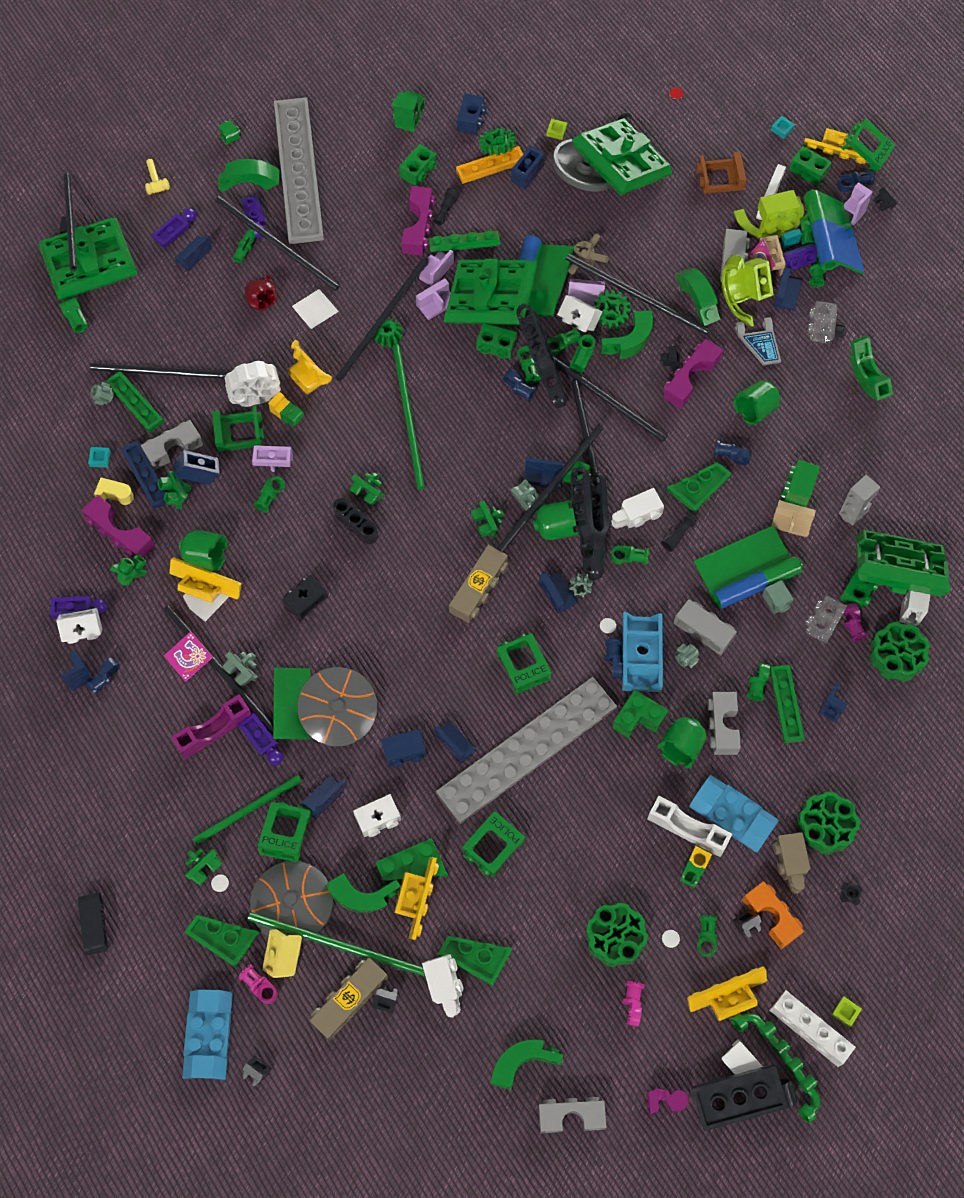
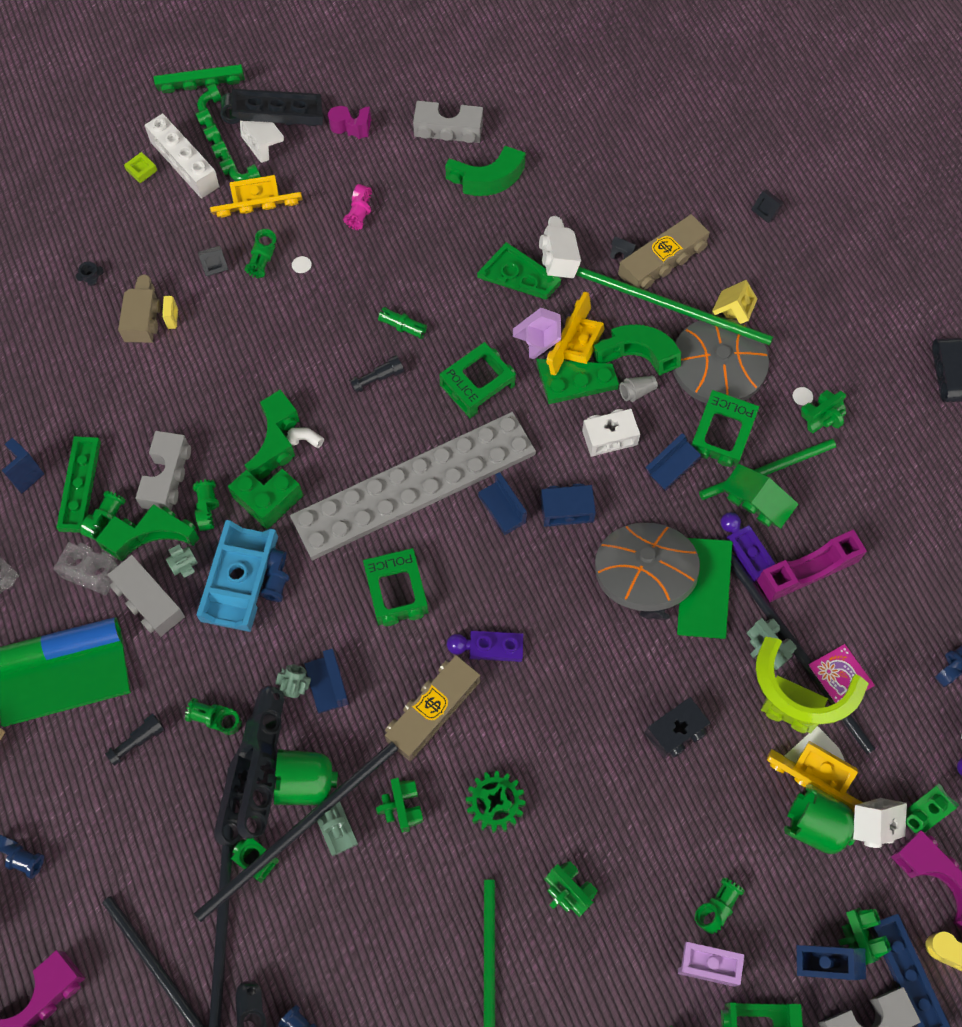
camera: 170 degrees left, 0 degrees up
(163, 552) = (879, 822): none -> white brick
(207, 1034) = (819, 245): dark azure piece -> none
(222, 621) = (797, 704): none -> lime piece
(222, 939) = (802, 333): green wing -> none
(256, 772) = (760, 496): none -> green brick
(258, 985) = (763, 283): dark pink connector -> none
(352, 513) = (595, 850): black beam -> none
(359, 862) = (637, 387): none -> light grey cone
(418, 526) = (484, 795): none -> green gear
(447, 635) = (488, 645): none -> dark purple plate
(448, 889) = (540, 331): none -> lavender panel
(541, 472) = (304, 868): dark blue panel -> none
(566, 846) = (391, 367): none -> black piece
(568, 891) = (402, 322): none -> green pin
(607, 625) = (272, 627): white sticker -> none
(625, 775) = (307, 434): none -> white arm
(635, 942) = (360, 269): green connector -> none
(638, 510) = (181, 782): white hinge -> none
(647, 785) = (276, 448): none -> green arch
(683, 704) = (206, 503): none -> green connector
(683, 741) = (219, 452): green cylinder -> none
(695, 867) = (250, 322): leg -> none
(700, 487) = (81, 806): green wing -> none
(704, 835) = (227, 347): white arch -> none
(712, 681) = (123, 537): none -> green arch
(733, 813) = (186, 373): dark azure piece -> none
(755, 635) = (84, 572): none -> clear brick
(764, 899) = (189, 277): orange arch -> none
(767, 864) = (170, 312): none -> light yellow tile
(778, 597) = (35, 618): sand green brick -> none
(831, 1125) = (192, 79): none -> green plate
(840, 823) = (68, 336): green connector -> none

